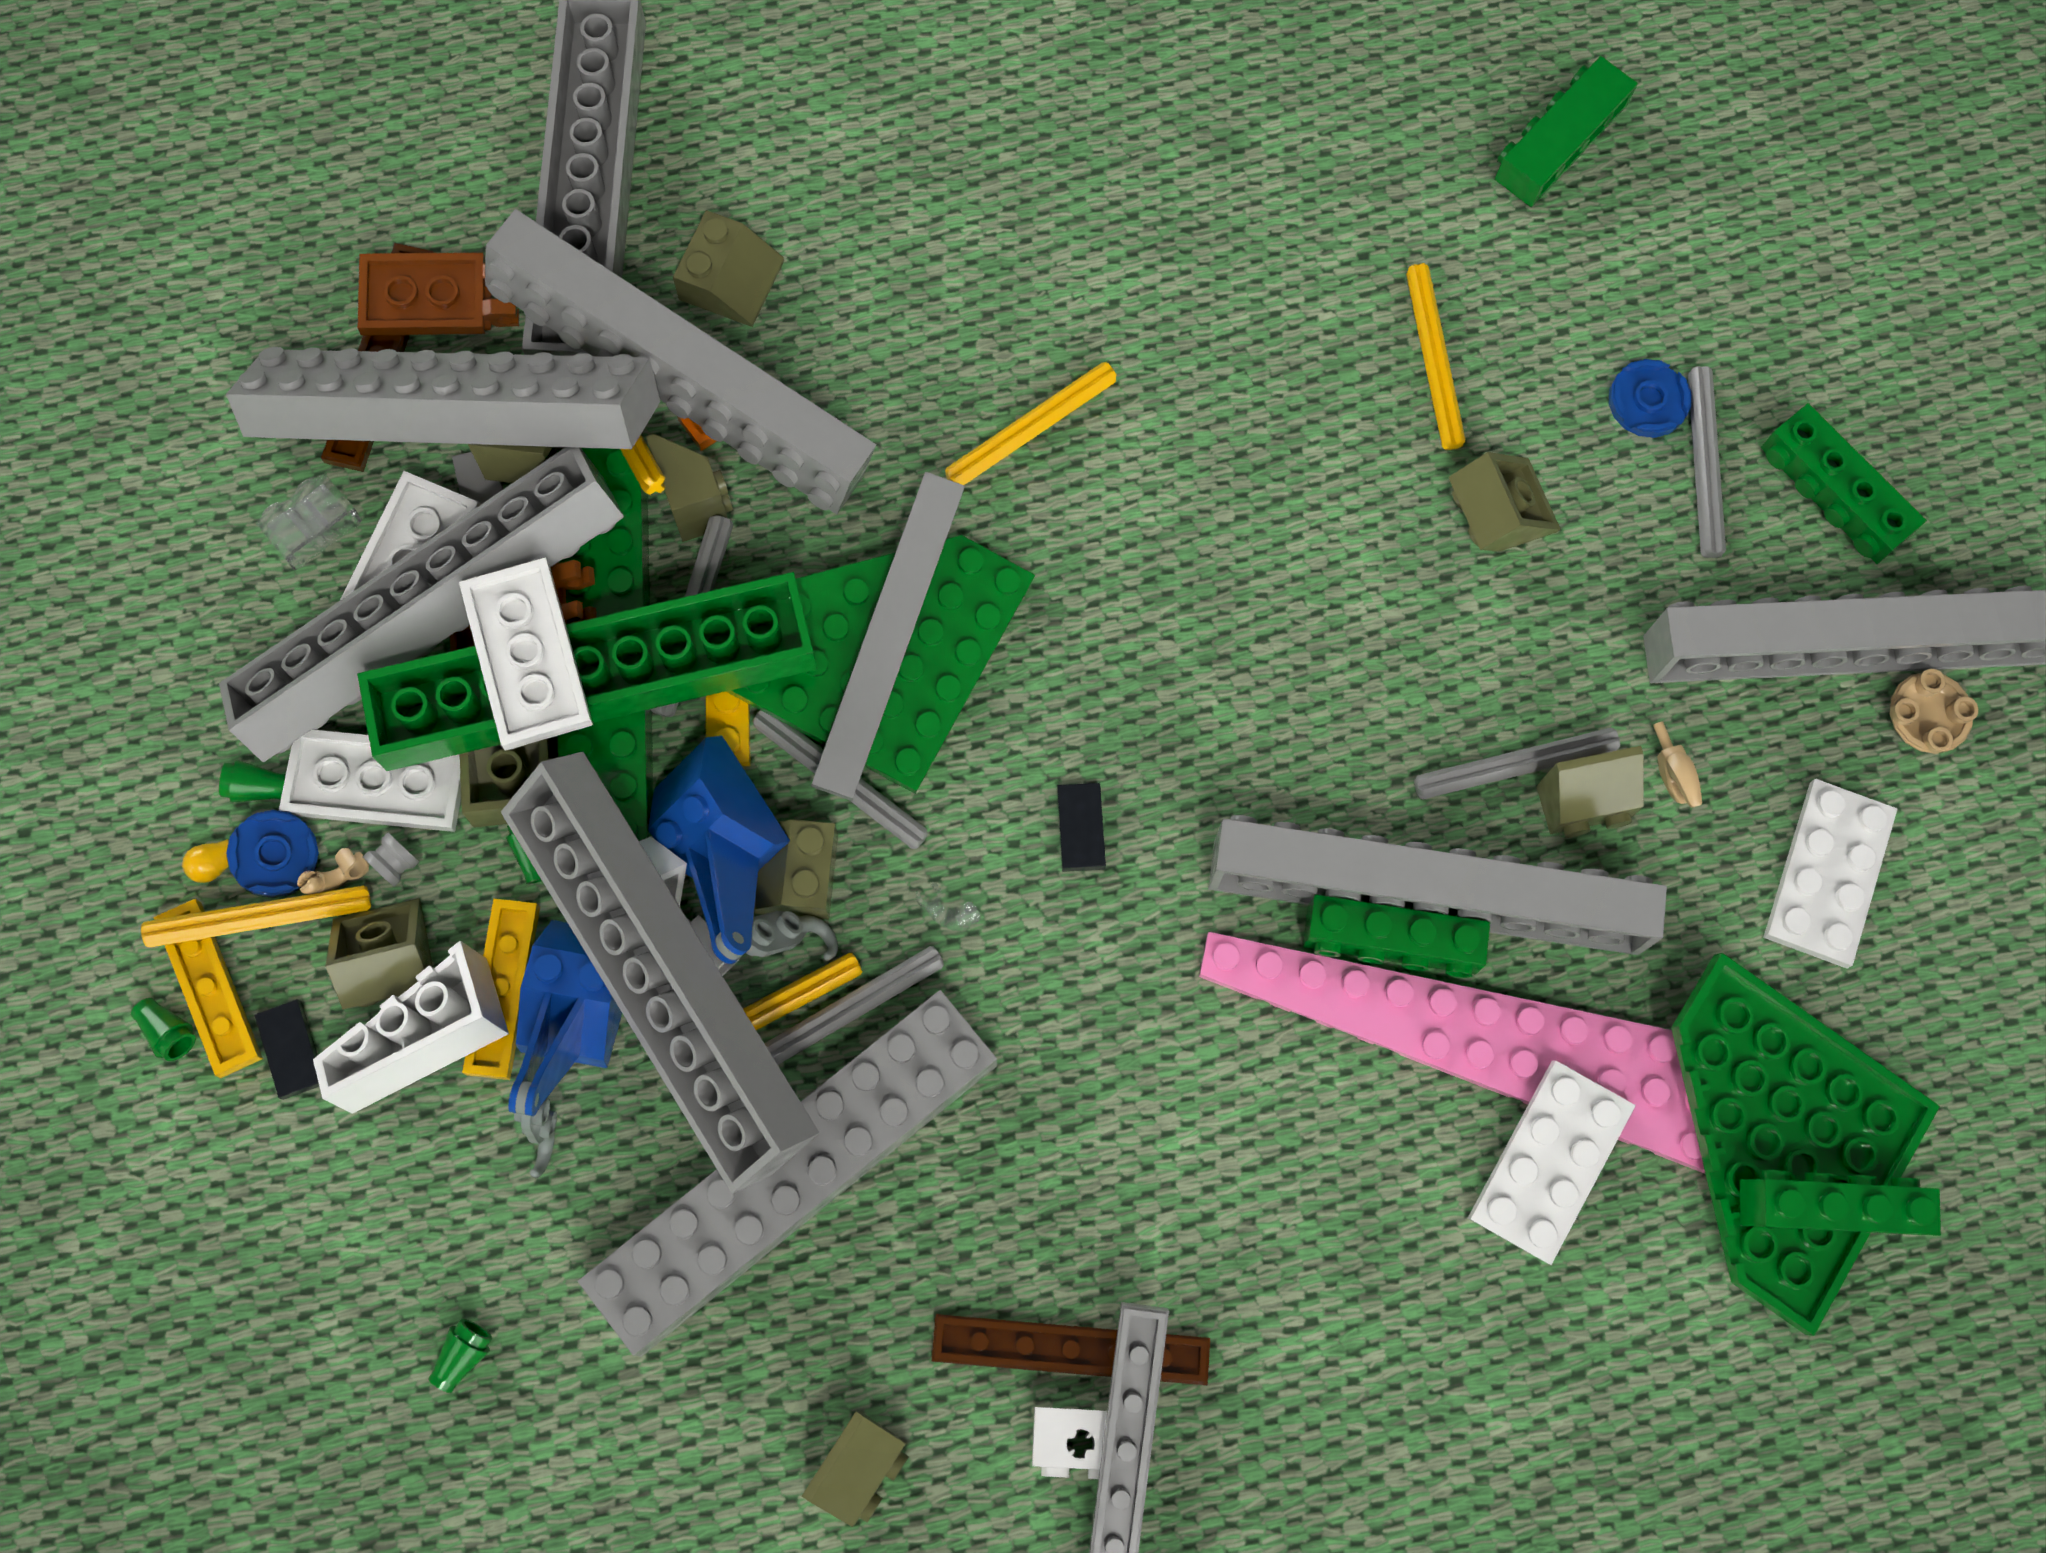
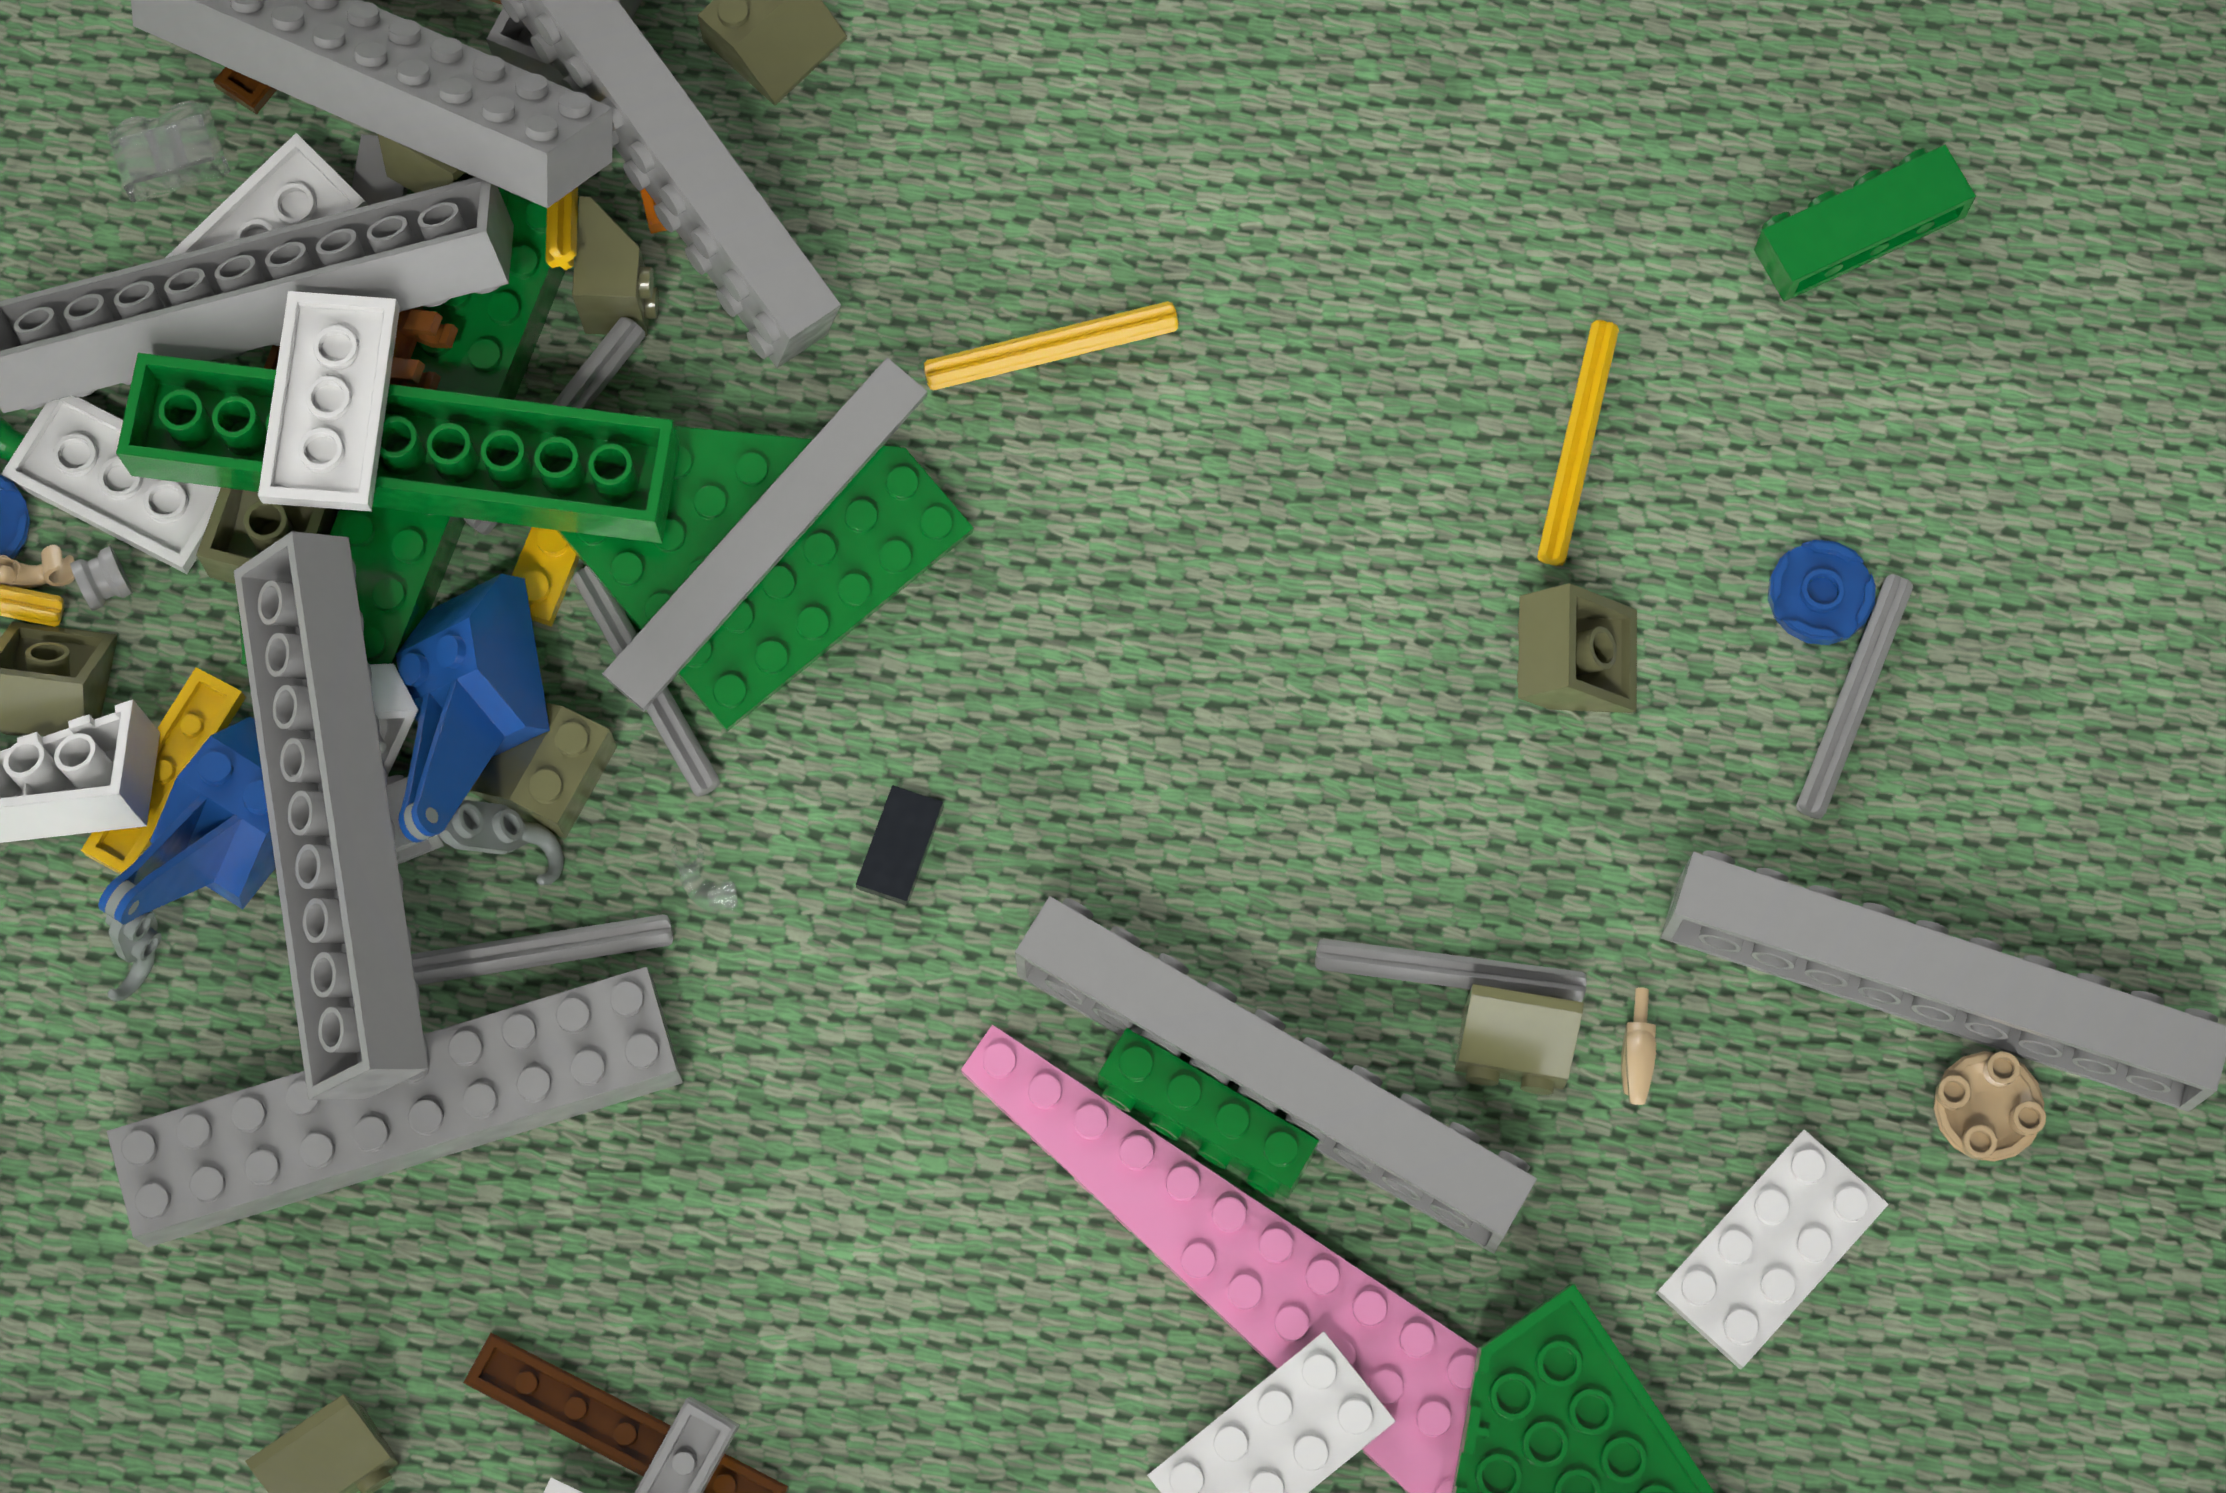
camera: 25 degrees right, 0 degrees up
(803, 990) = (490, 910): yellow axle -> none
(1842, 484) = (2006, 787): green brick -> none

